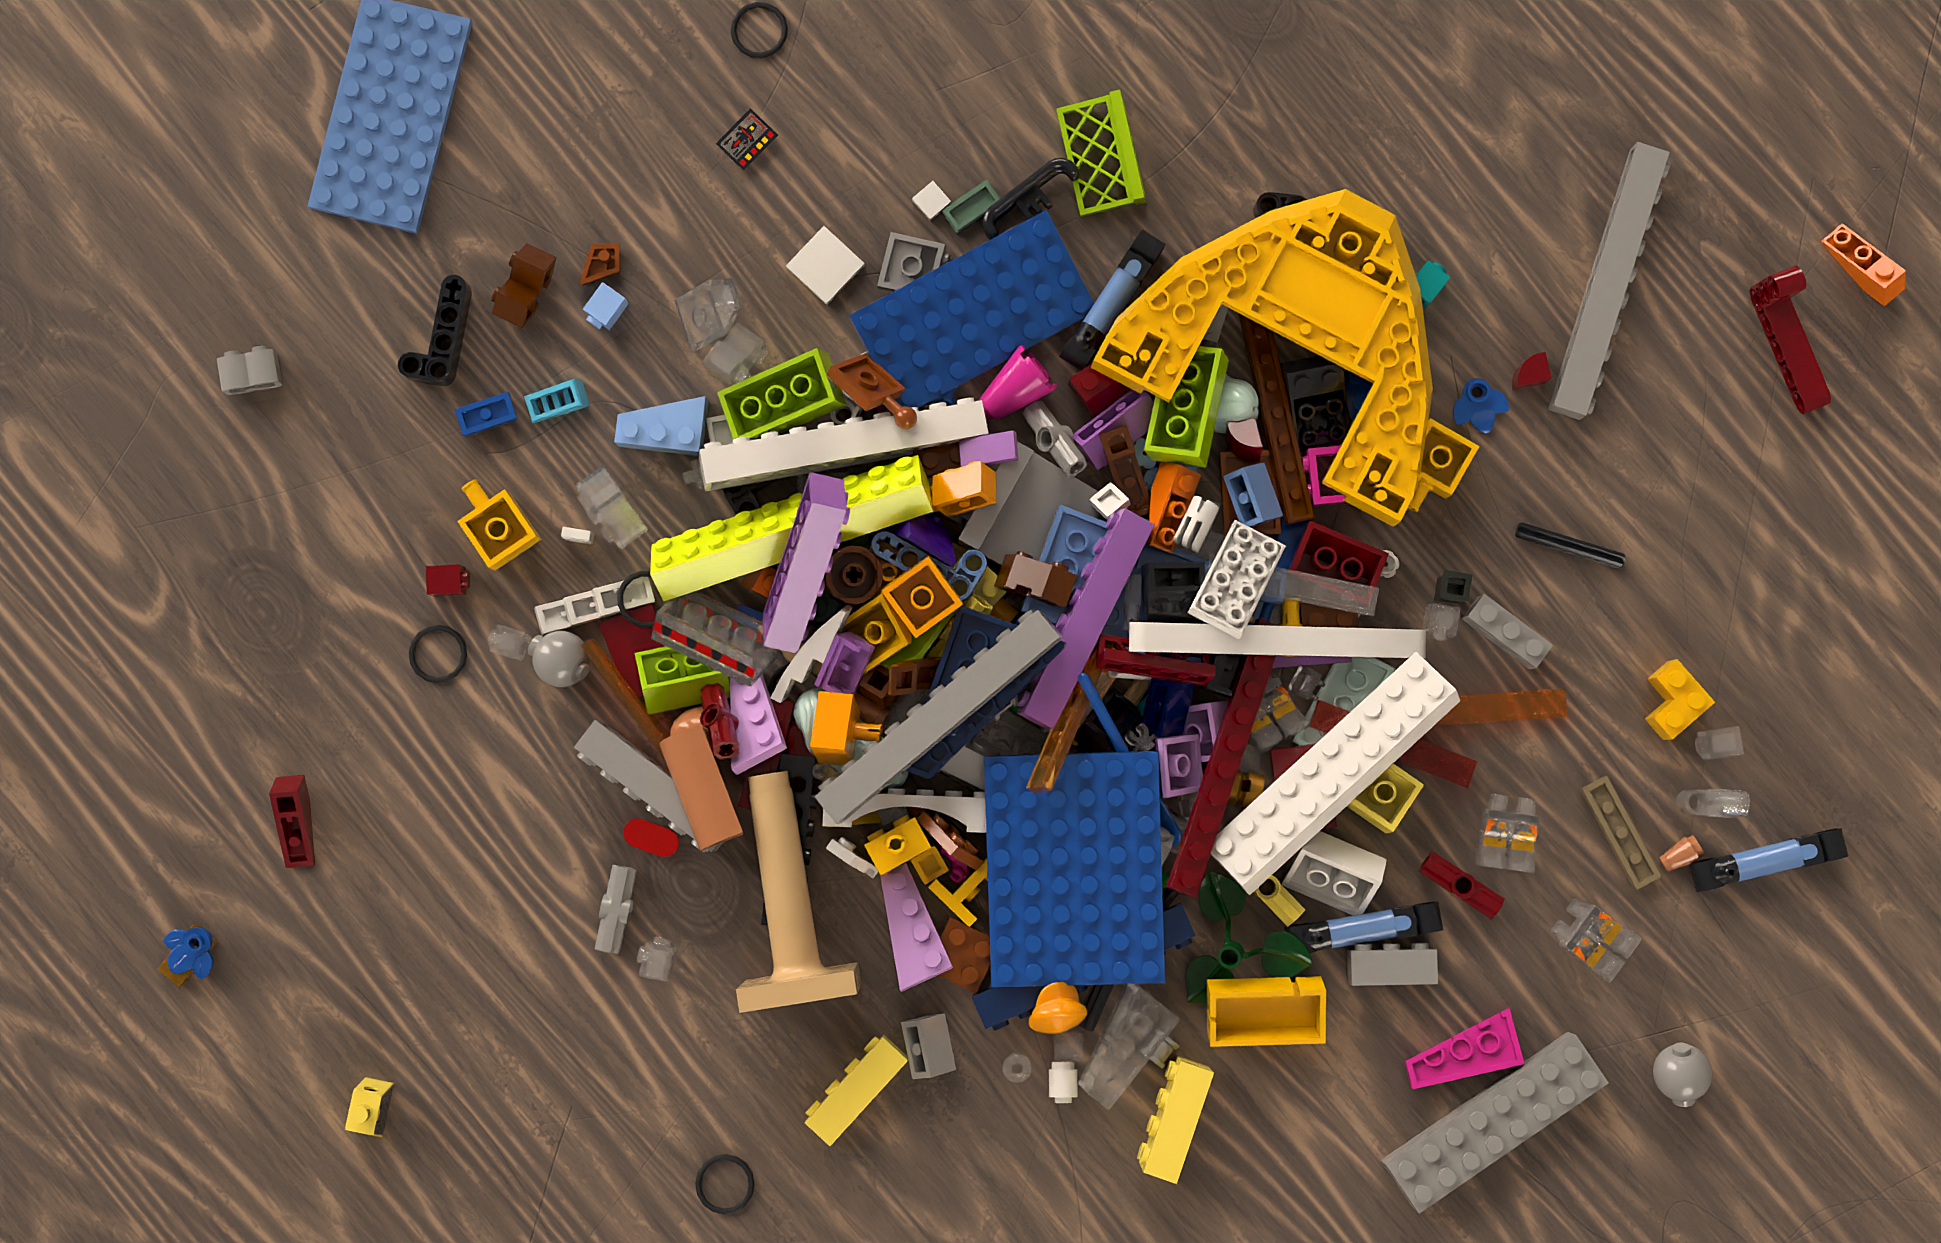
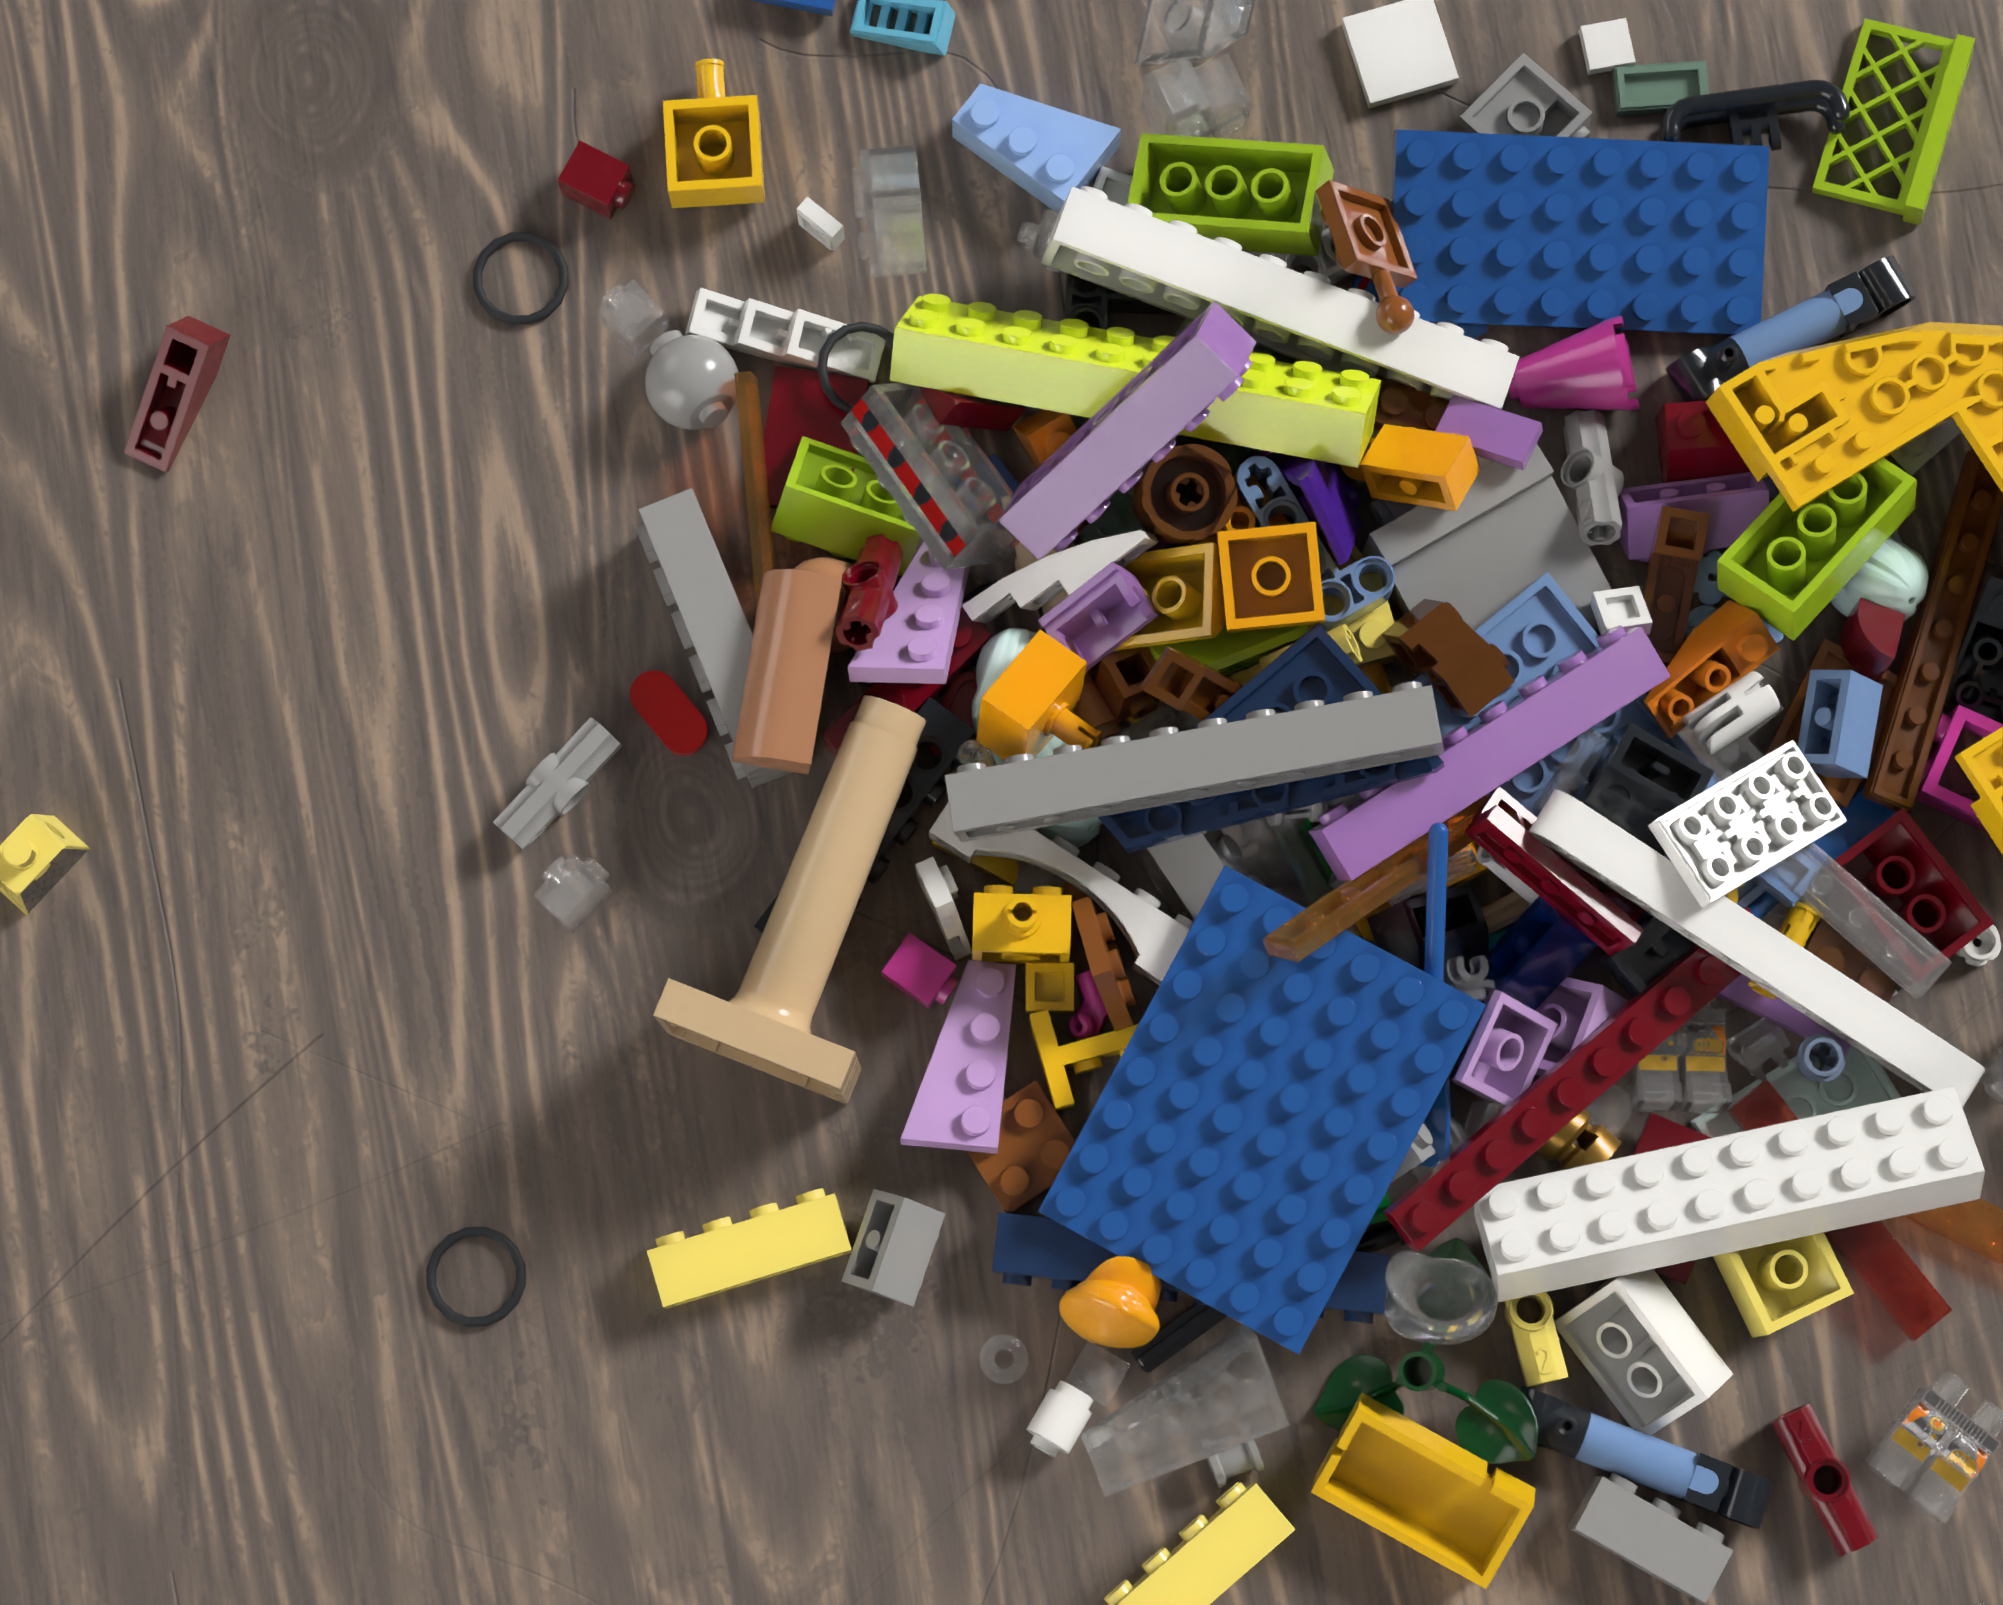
camera: 30 degrees right, 5 degrees down
(707, 596) = (971, 411): none -> dark red slope
(860, 896) = (921, 972): none -> dark pink brick
(1218, 911) = (1438, 1298): none -> clear piece
(1347, 672) = (1828, 1051): none -> sand blue cone

